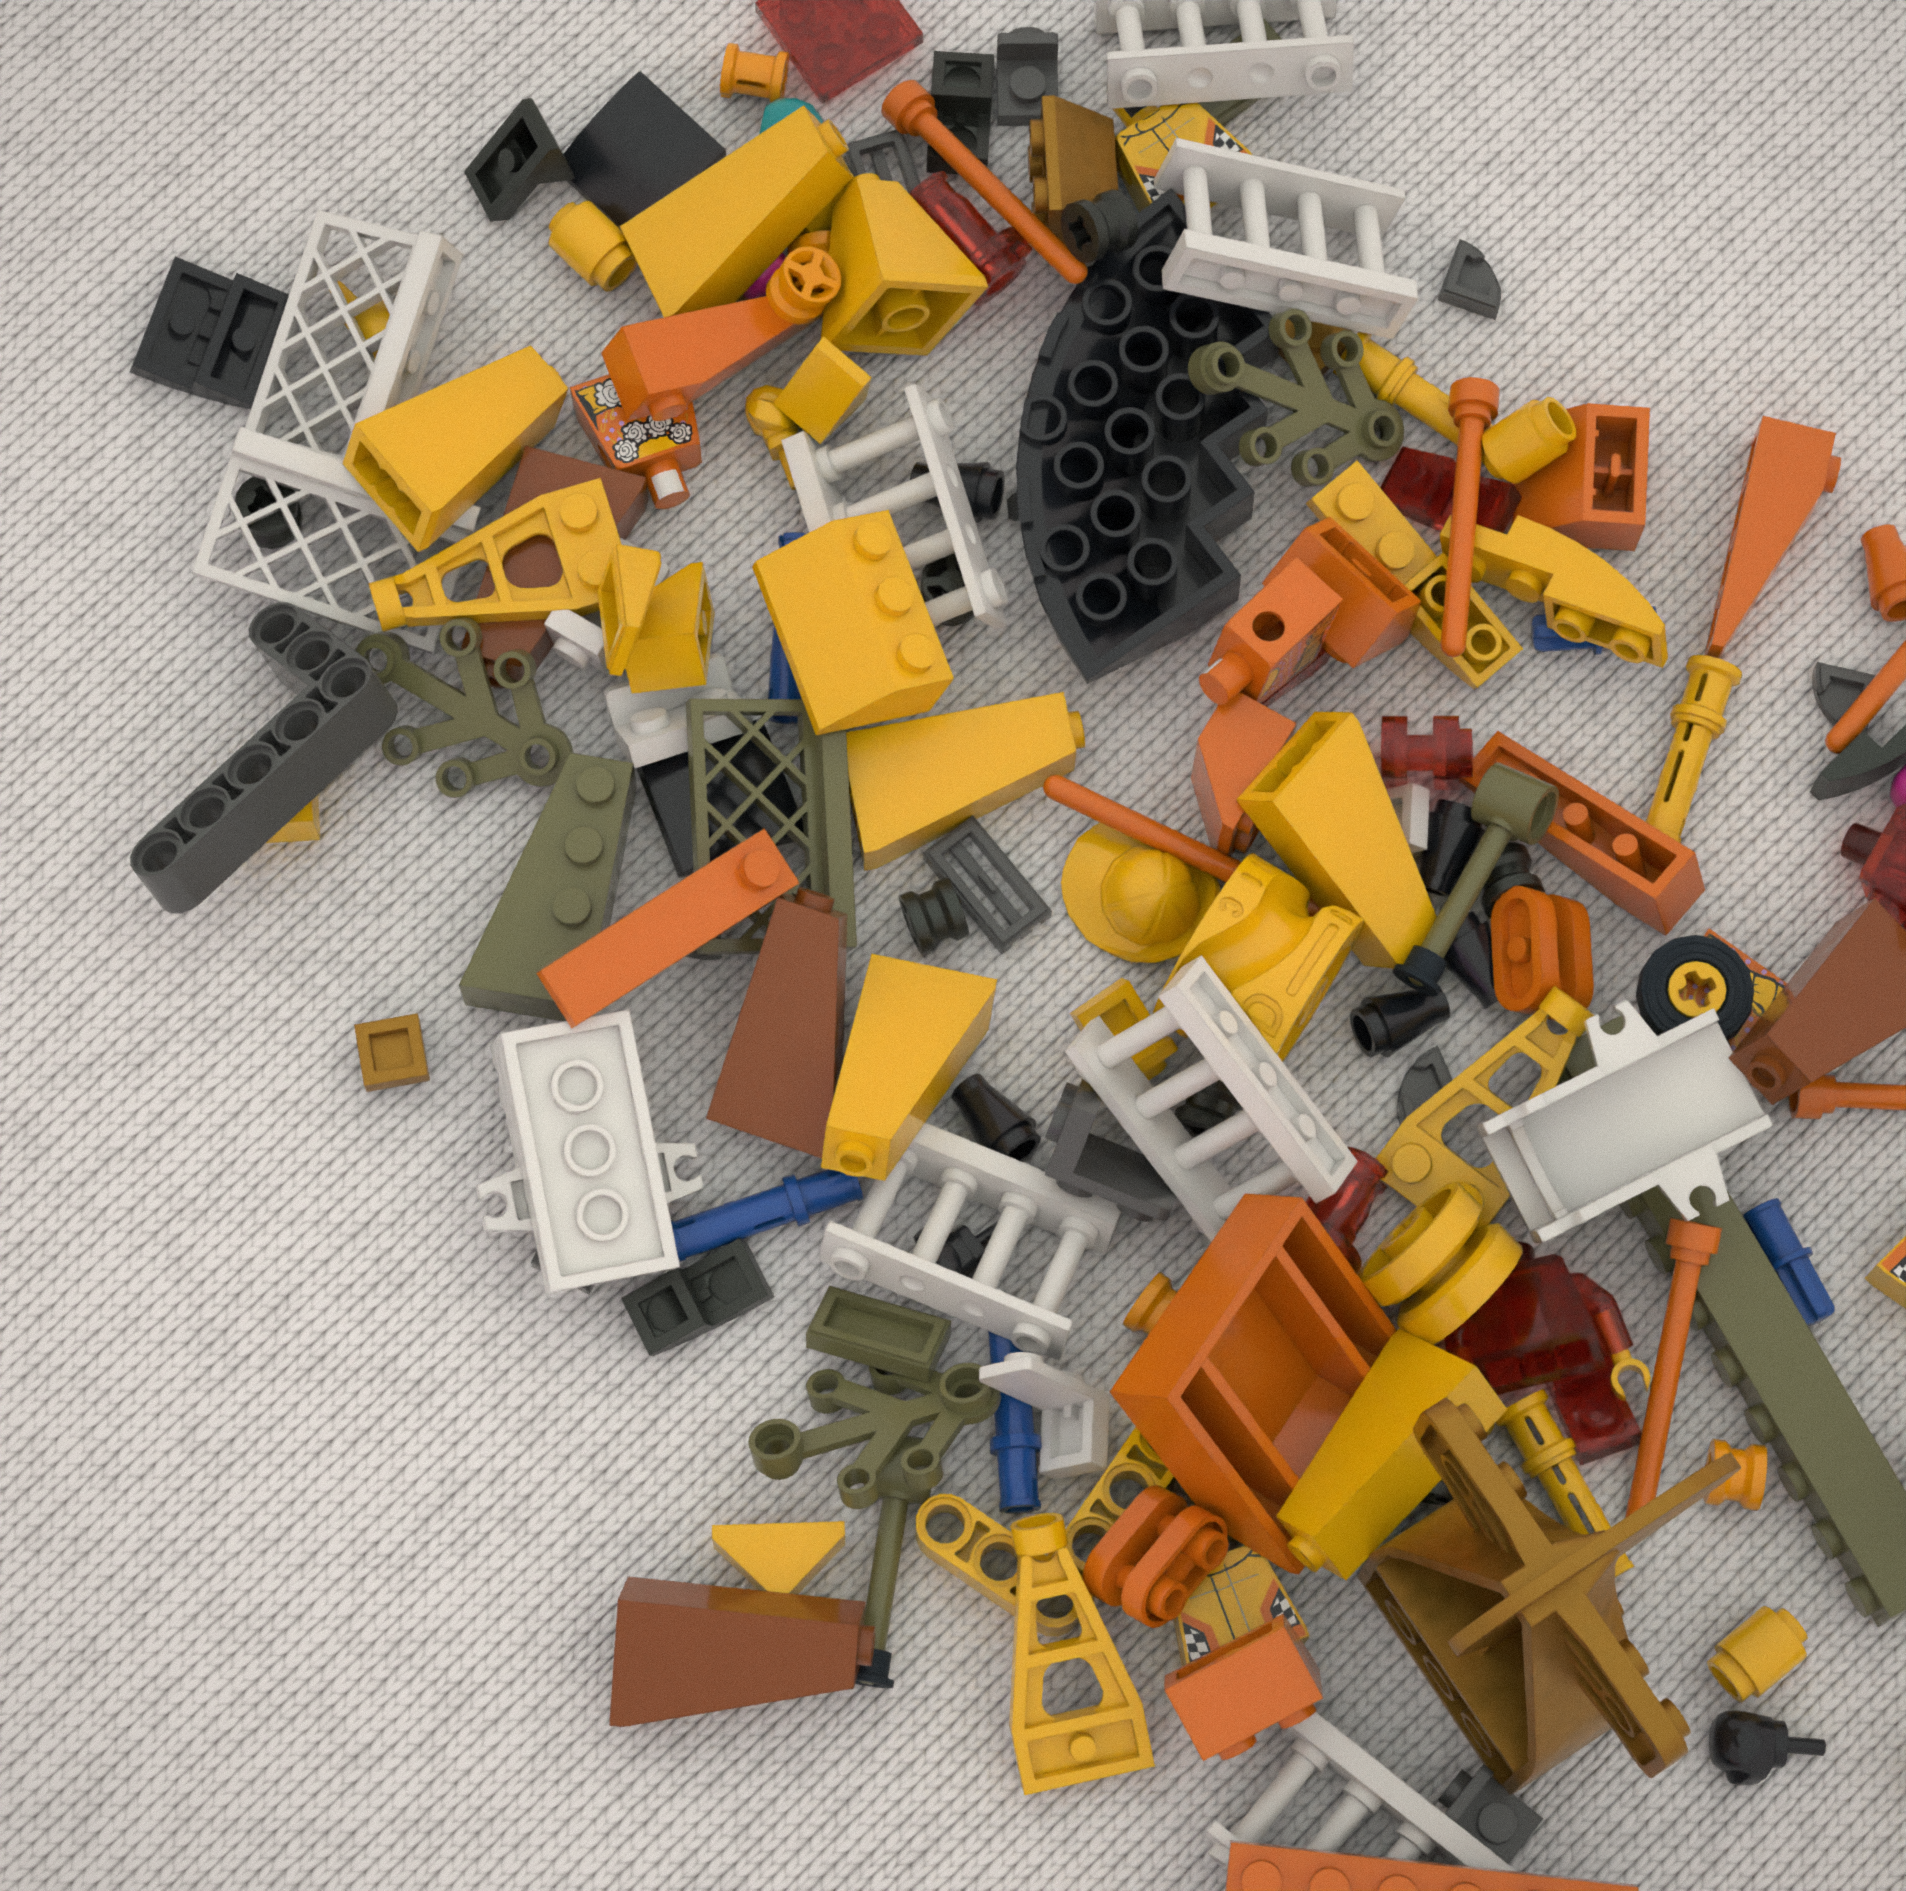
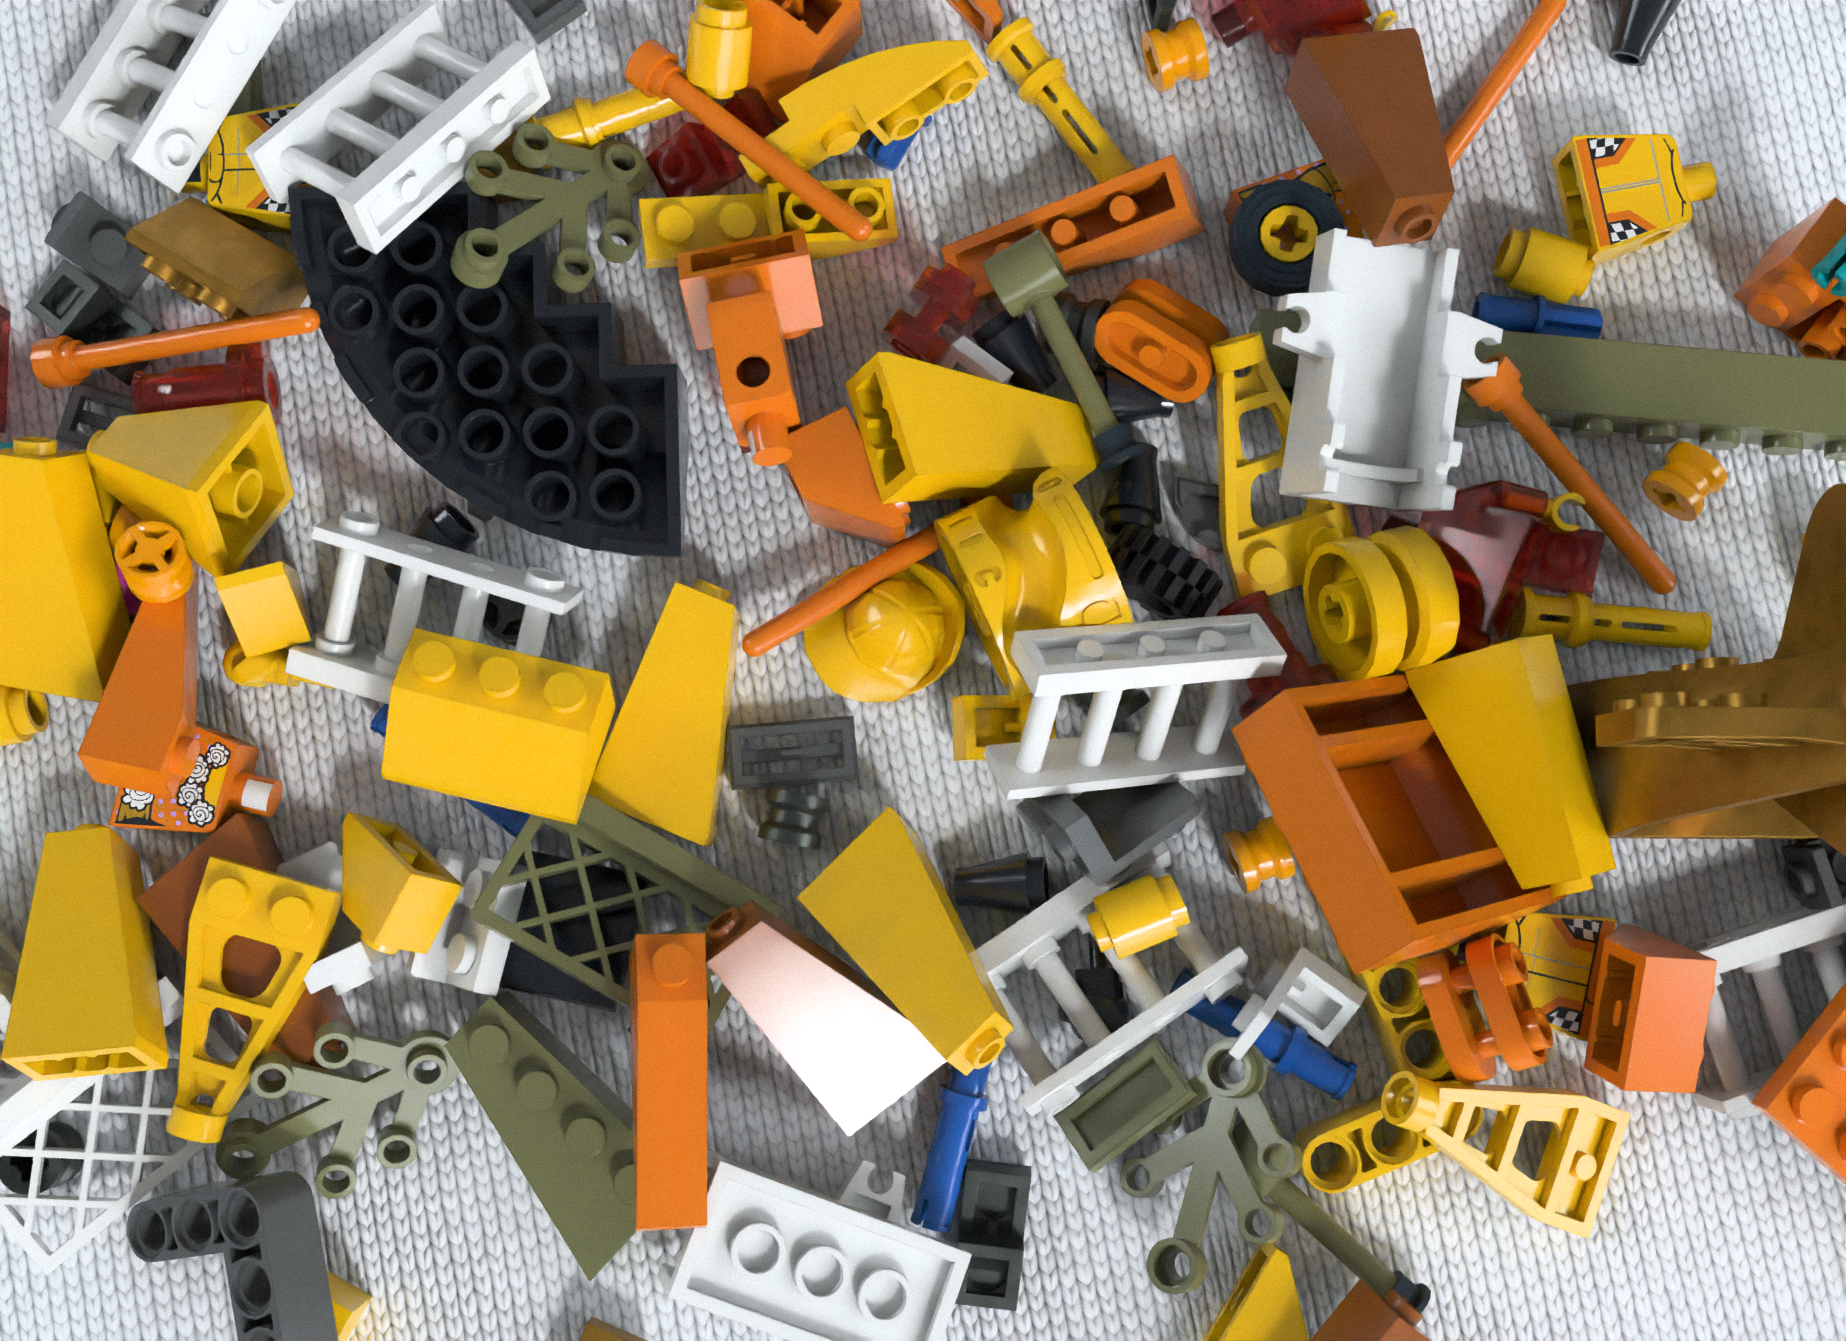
camera: 55 degrees left, 10 degrees up
(625, 600) = (339, 915): yellow slope -> none
(1042, 1225) = (1137, 915): none -> yellow brick
(1099, 226) = (279, 270): pearl dark grey wheel -> none
(1340, 1073) = (1162, 574): none -> black tyre
(1799, 813) = (1175, 54): none -> light orange wheel
(1839, 1235) = (1543, 264): none -> yellow brick

